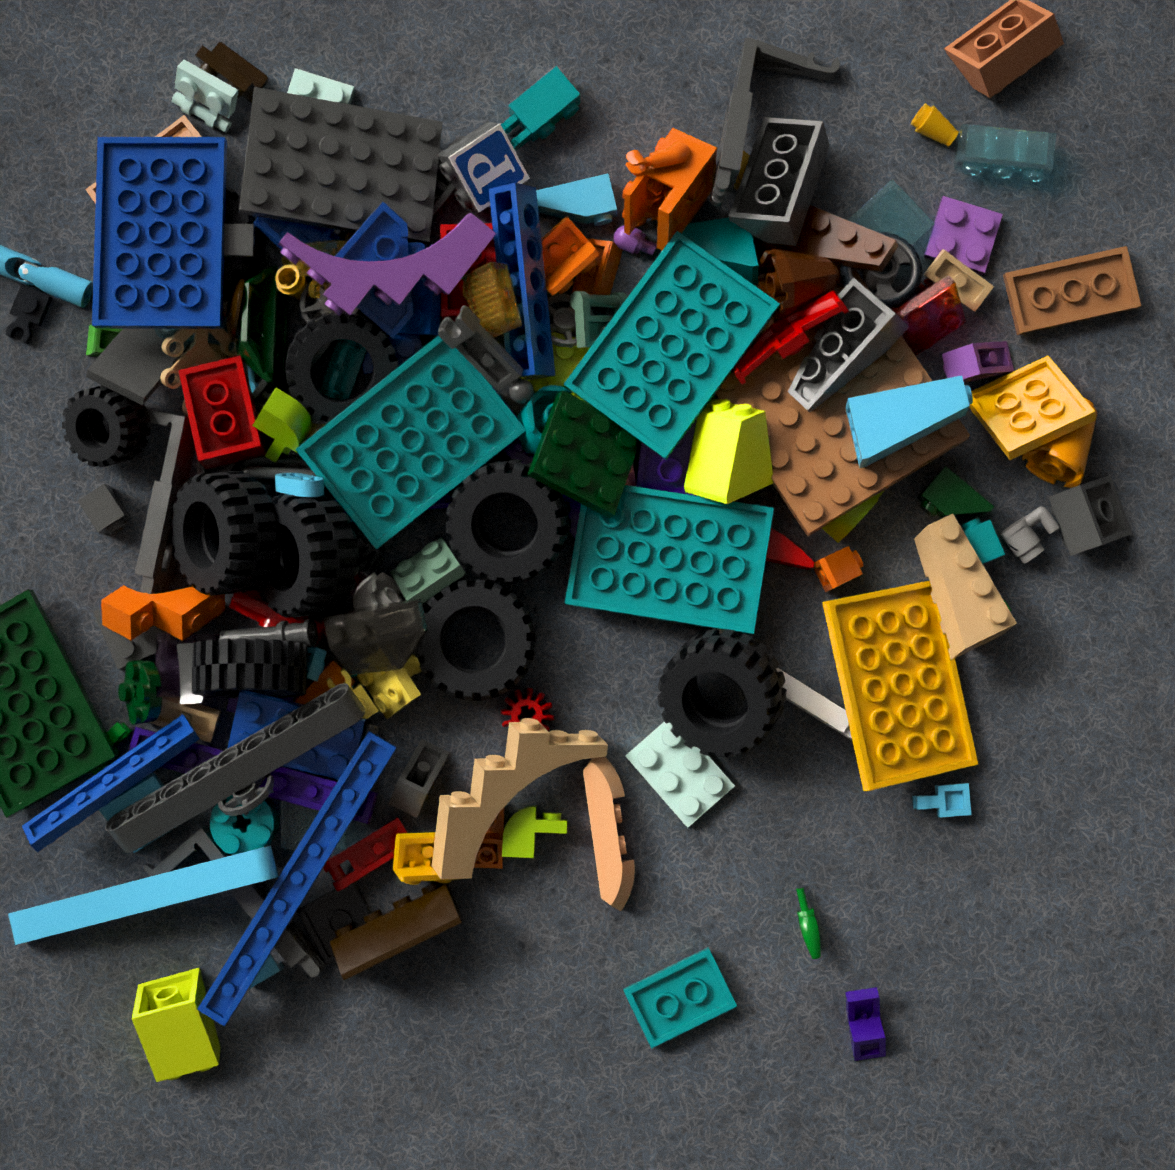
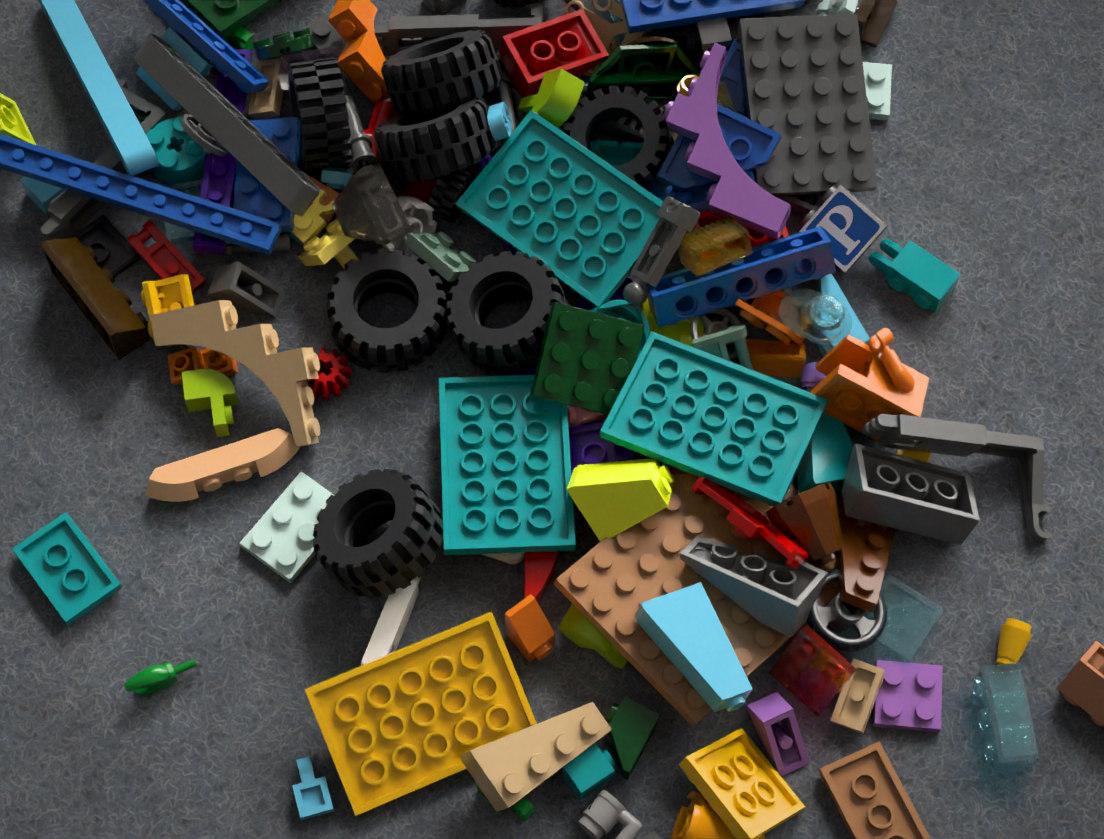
camera: 75 degrees right, 20 degrees down
(574, 220) = (815, 316): none -> clear light blue piece
(865, 1024) = (64, 756): dark purple slope -> none

